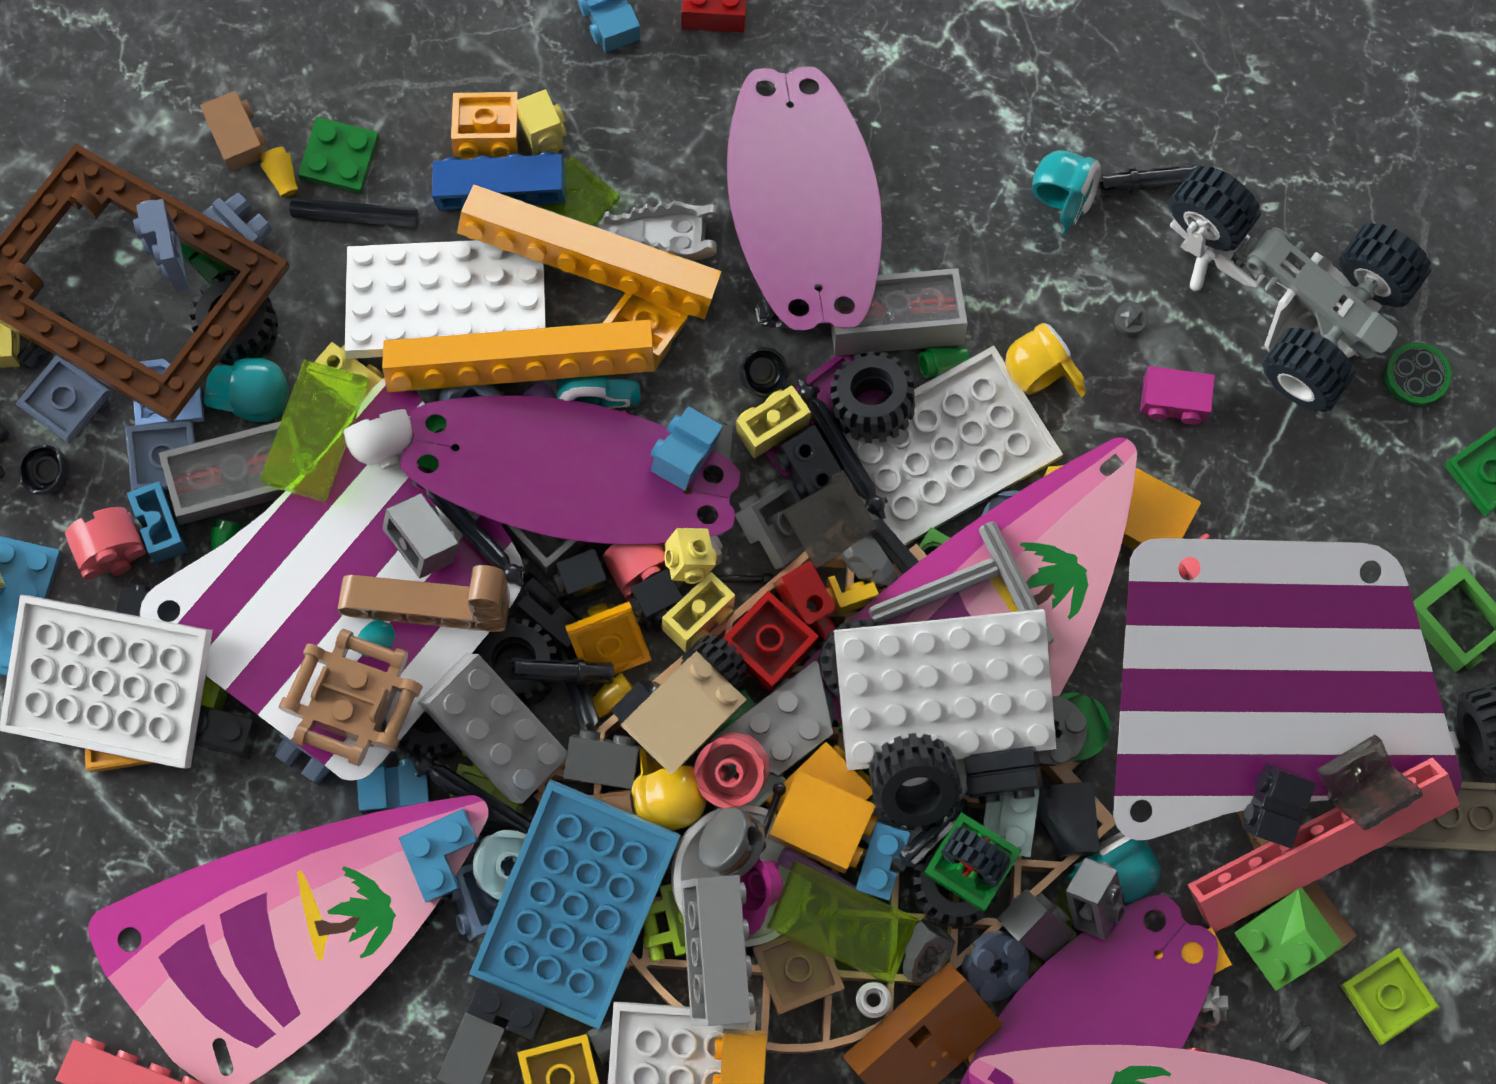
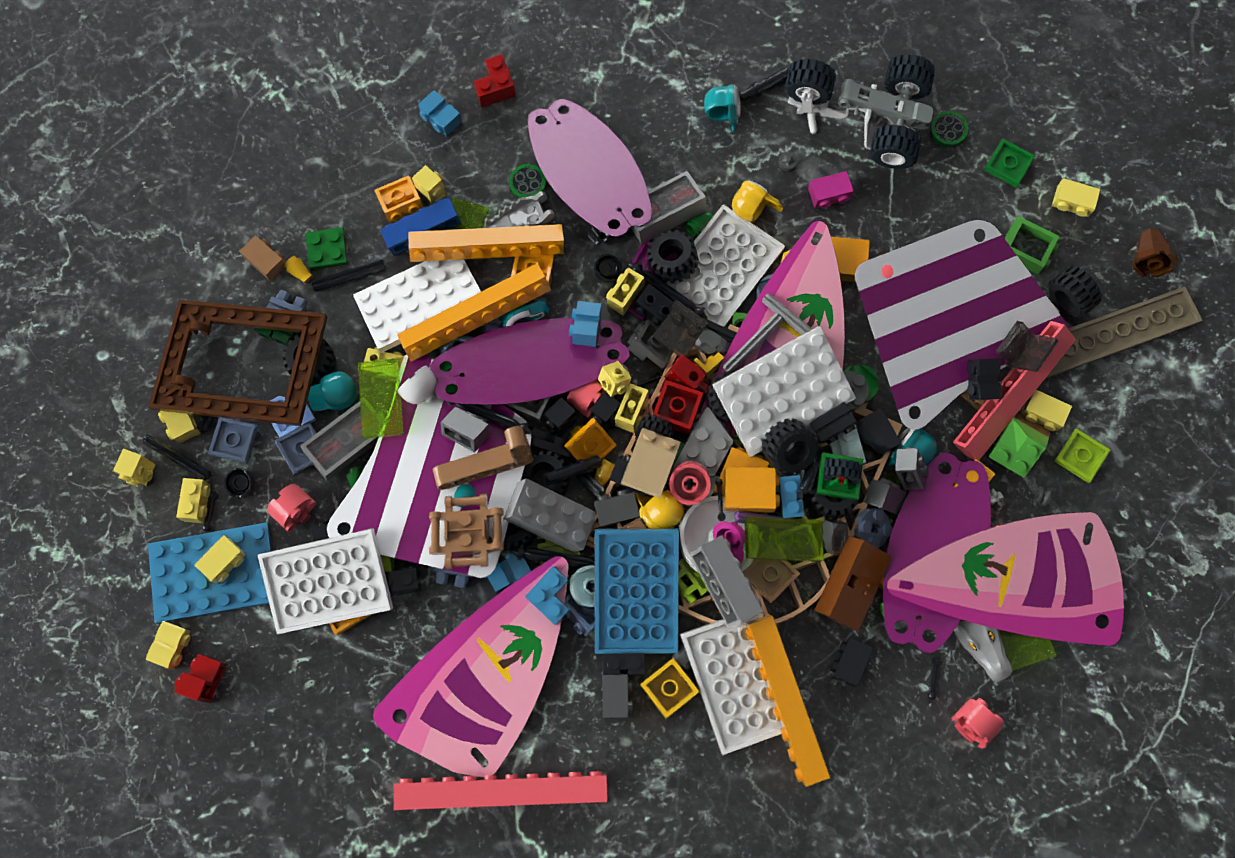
camera: 15 degrees left, 0 degrees up
(159, 522) = (315, 484): dark azure brick -> none
(161, 240) = (251, 330): sand blue plate -> none
(698, 178) = (526, 181): none -> tile
(731, 842) = (708, 520): dark grey head -> none
(883, 994) = (820, 567): white plate -> none
(1363, 899) = (1046, 411): none -> light yellow brick

